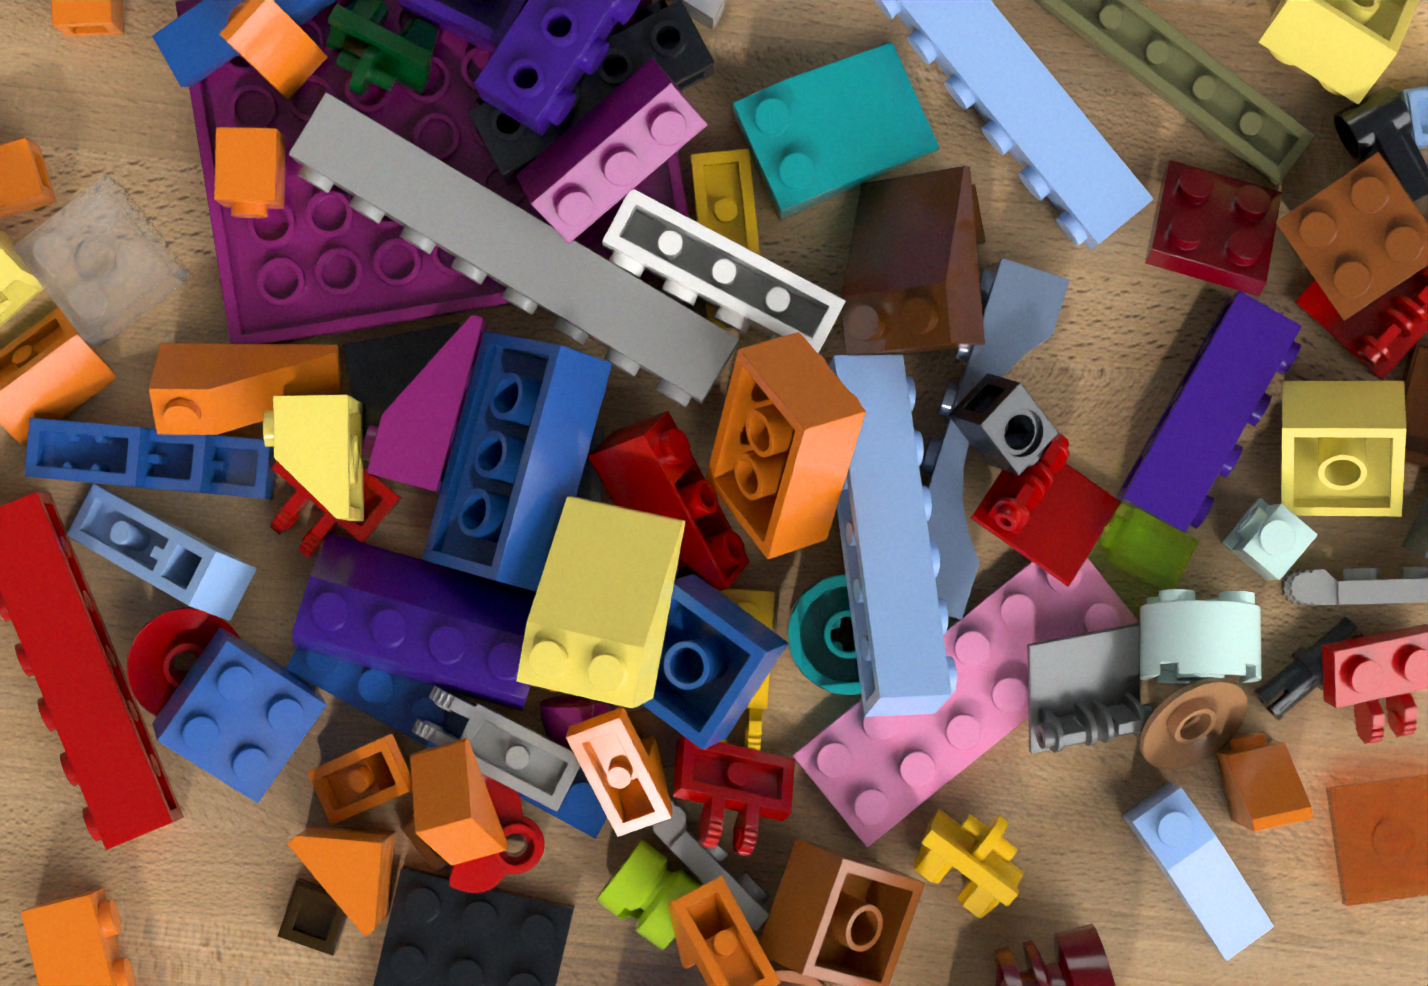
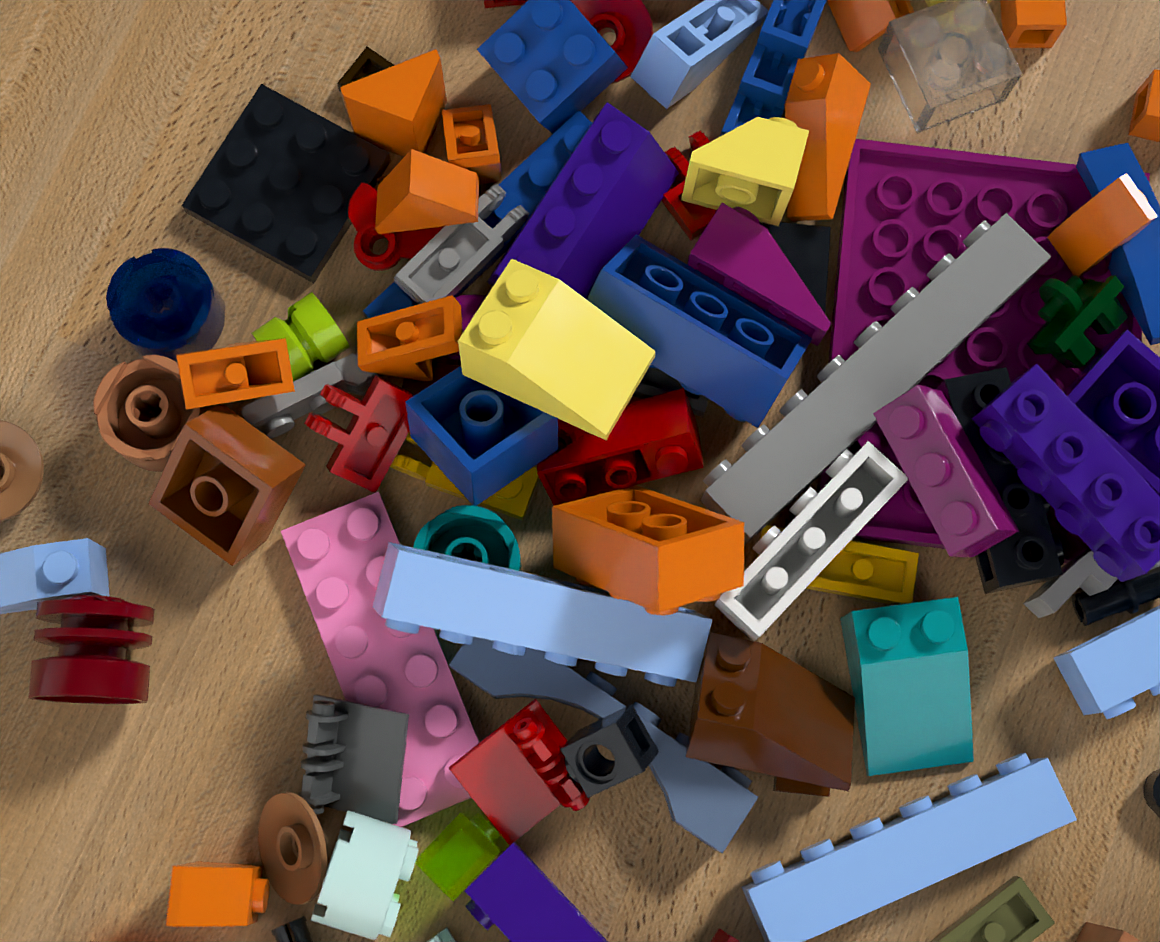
camera: 105 degrees right, 10 degrees down
(250, 170) = (998, 182): orange brick -> none
(977, 853) = (242, 619): yellow hips -> none
(1198, 869) = (164, 814): light blue slope -> none

